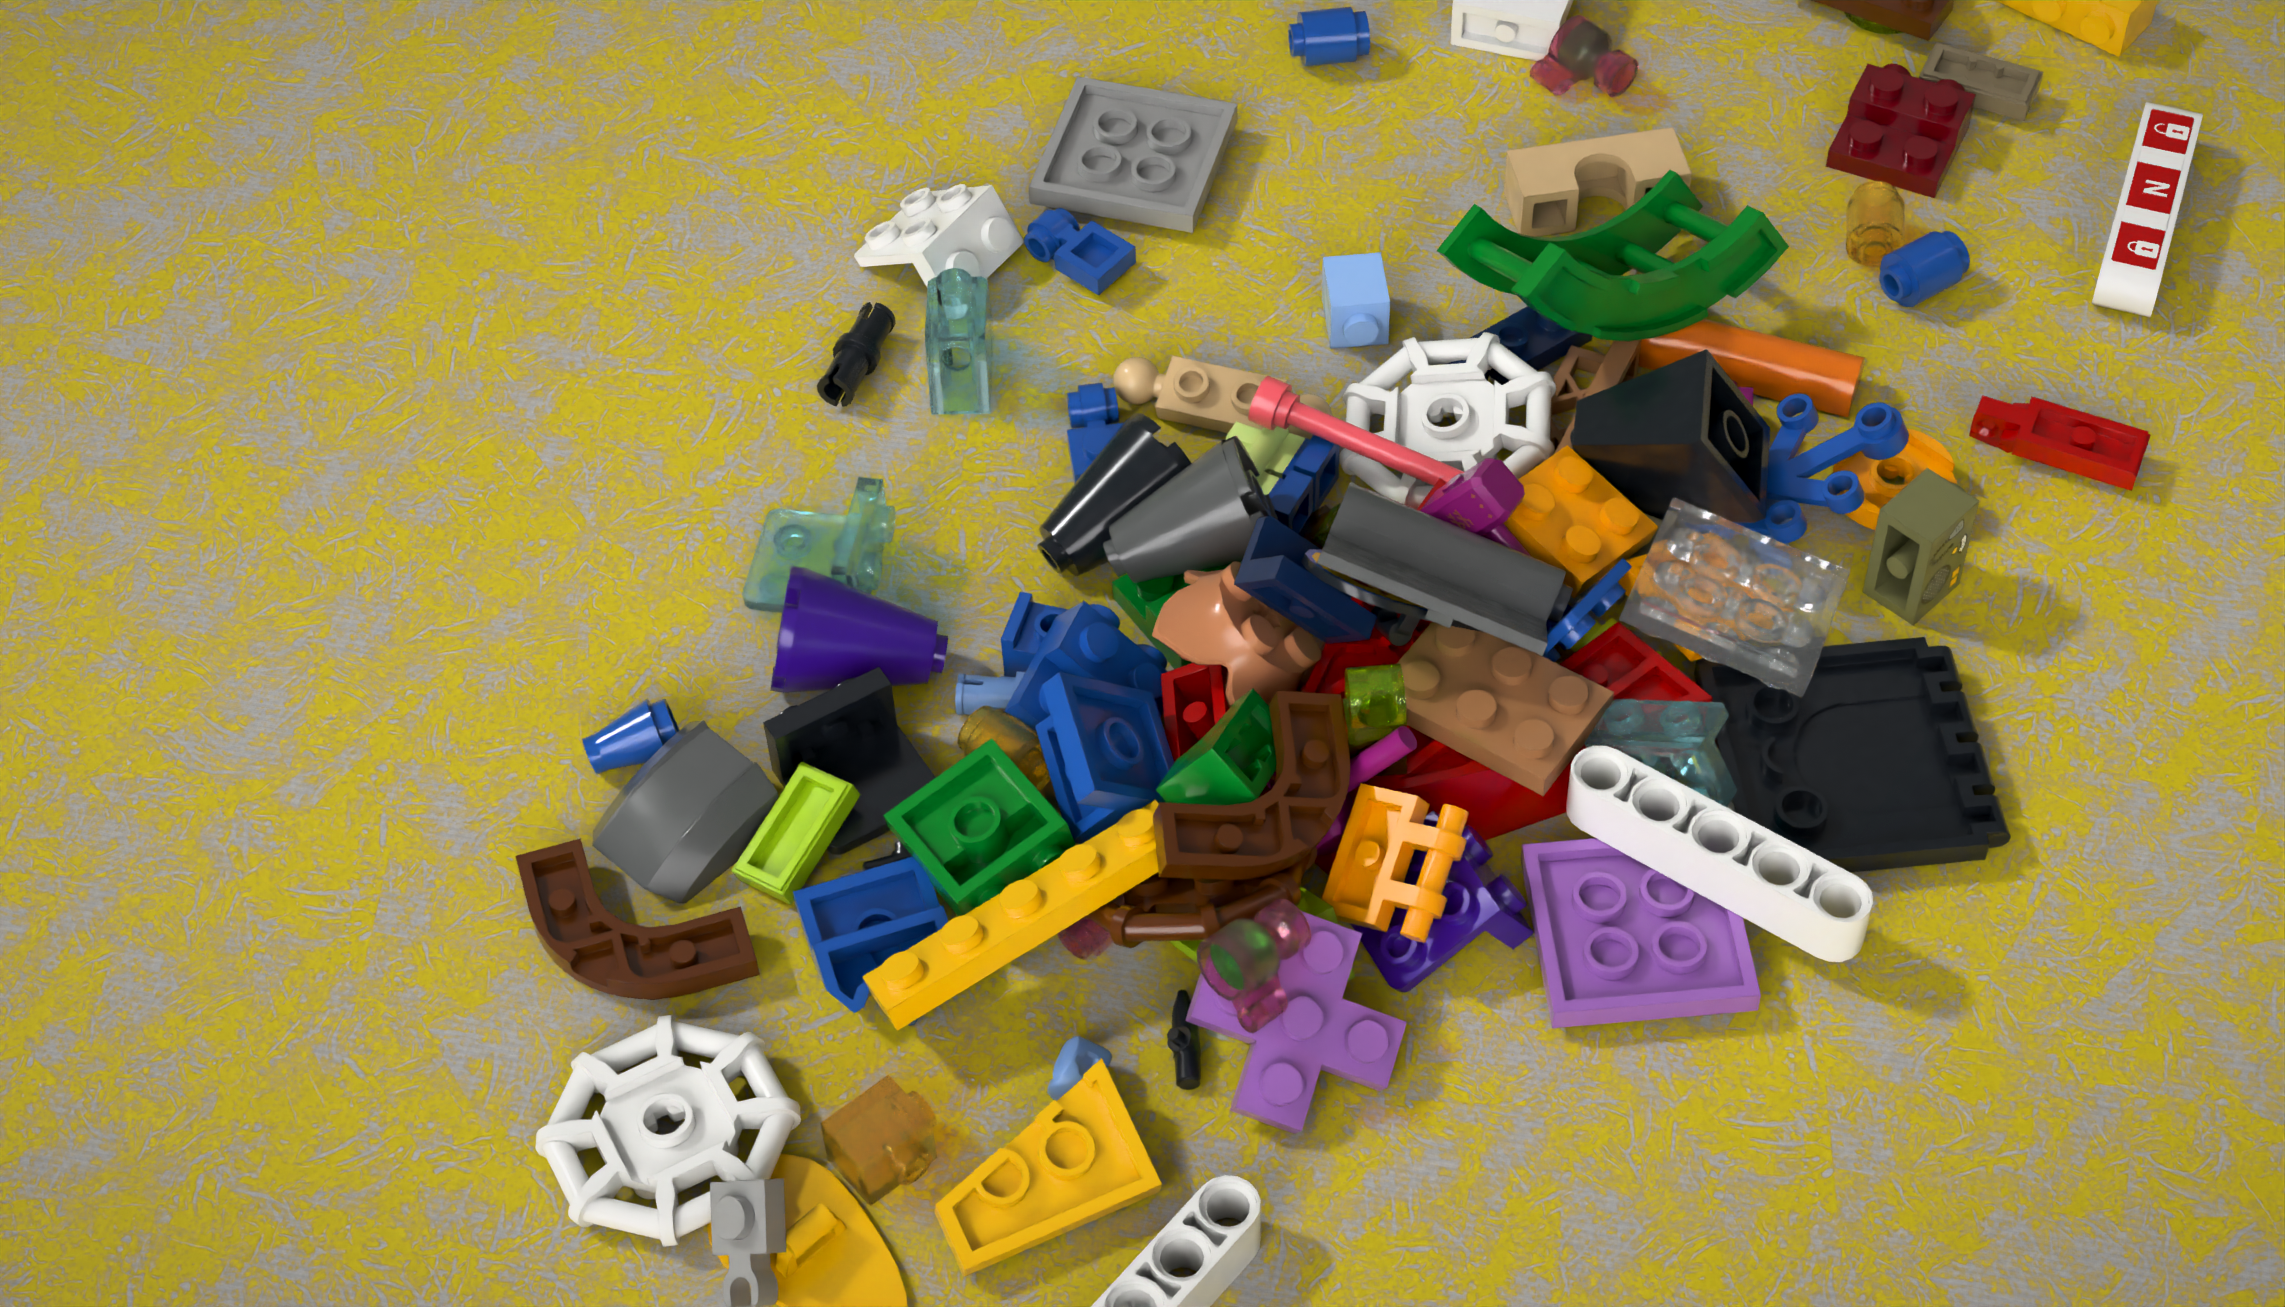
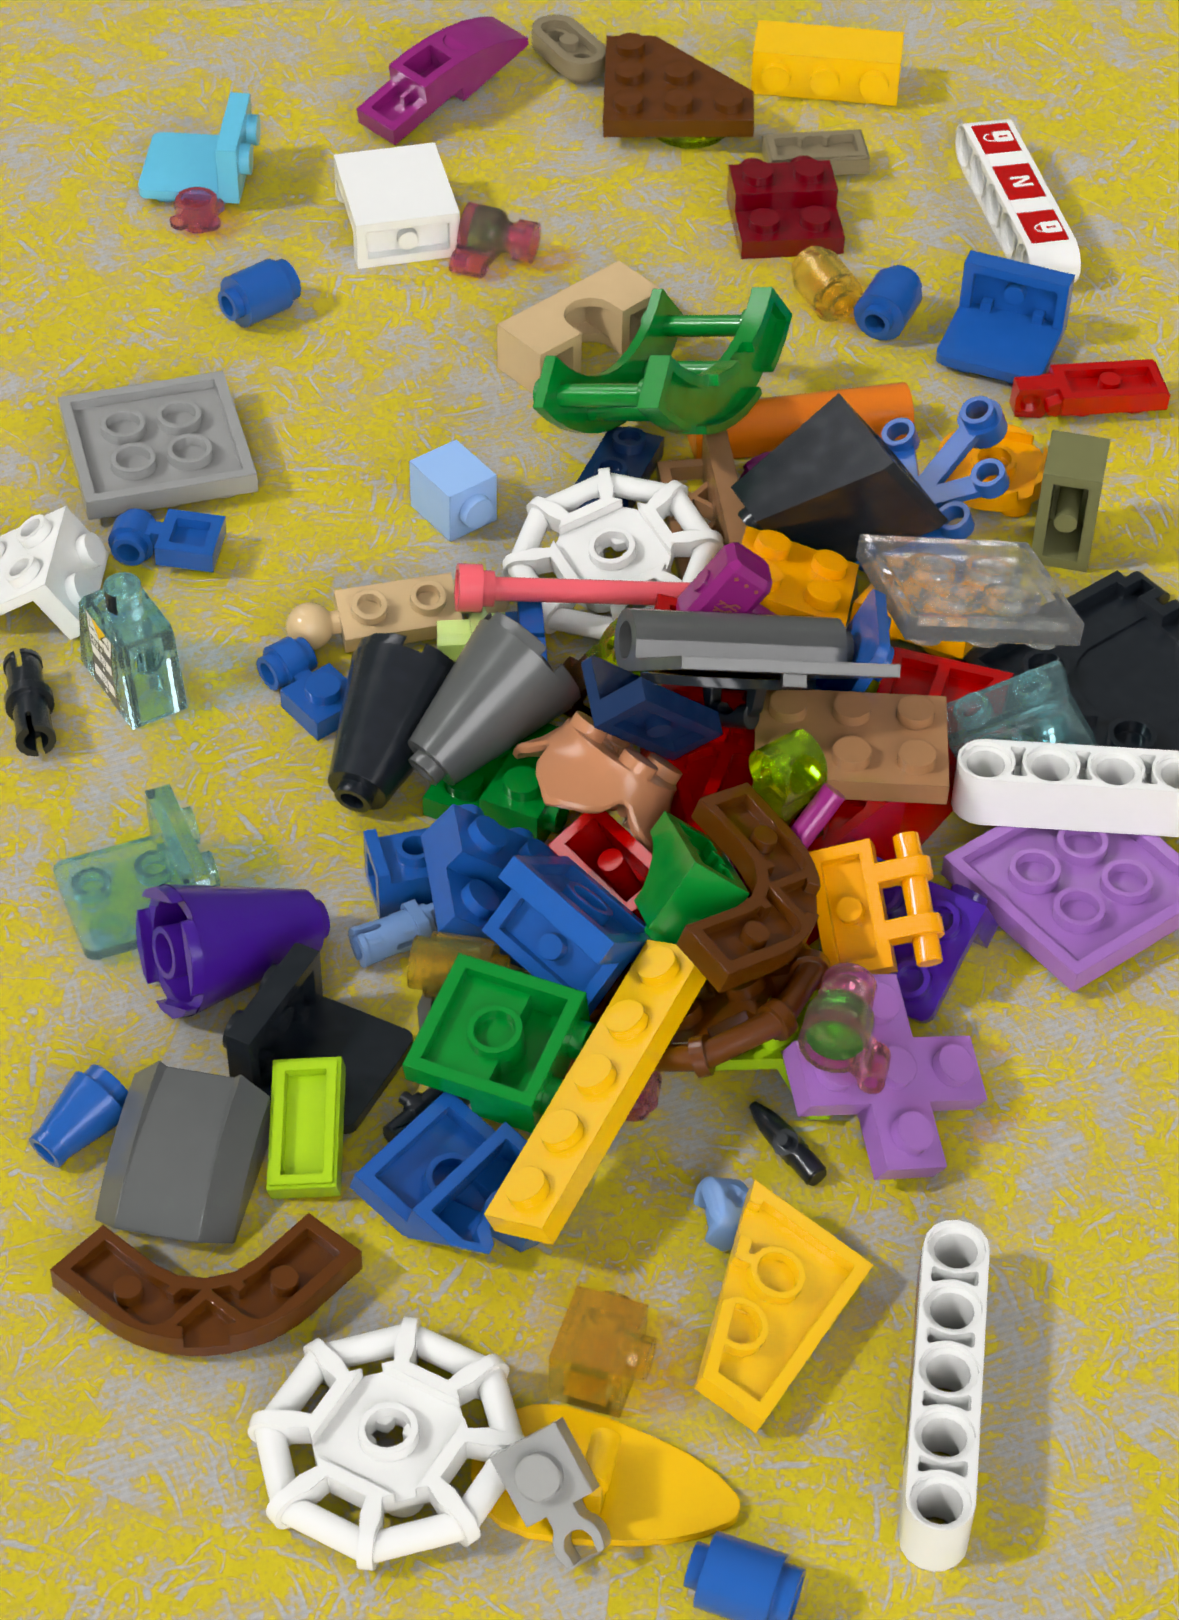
camera: 35 degrees left, 5 degrees down
(2029, 336) = (1006, 318): none -> blue bracket

